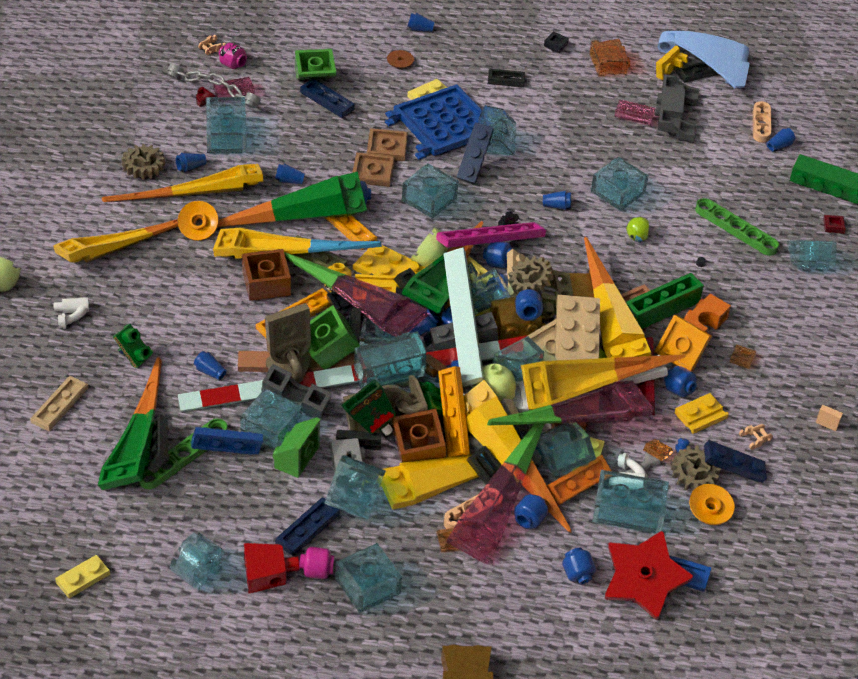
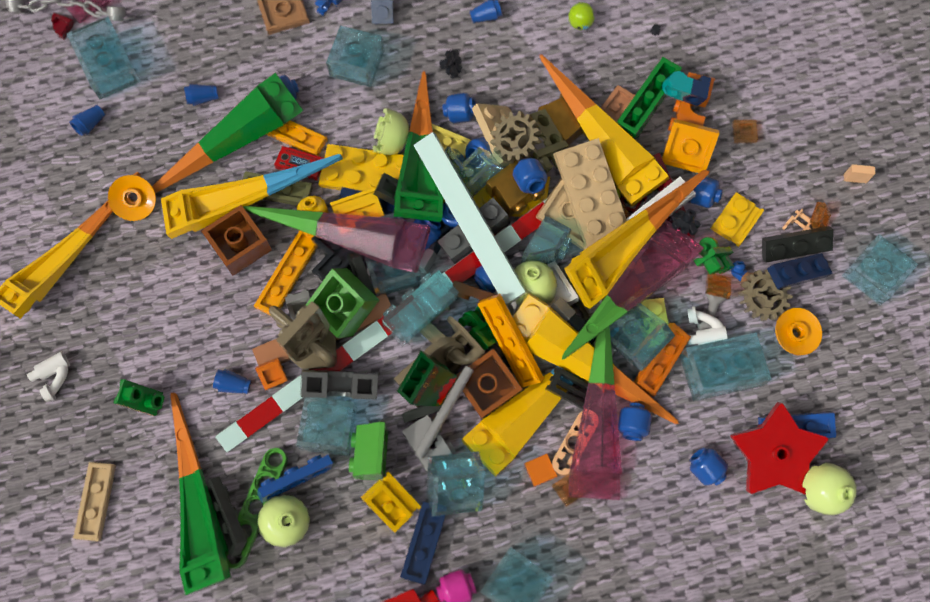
camera: 20 degrees left, 25 degrees up
(143, 161) = (31, 152): dark tan gear -> none
(202, 466) = (272, 525): none -> yellowish green cylinder
(224, 181) = (133, 132): yellow plate -> none
(245, 371) = (271, 373): none -> orange tile
(296, 484) = (390, 502): none -> yellow plate
(350, 255) = (292, 158): none -> red tile
(372, 436) = (444, 412): none -> light grey bar
(374, 168) = (282, 48): medium nougat tile -> none
(432, 518) = (540, 470): none -> orange tile
(490, 234) = (443, 92): dark pink tile -> none
(648, 386) = (685, 222): none -> black plant
(663, 424) = (714, 258): none -> green hips
(676, 617) = (829, 489): none -> yellowish green cylinder
(698, 297) = (687, 88): none -> leg
(757, 447) = (797, 244): none -> pearl dark grey plate
(775, 435) = (820, 215): none -> clear orange tile
(809, 488) = (879, 270): none -> clear light blue brick

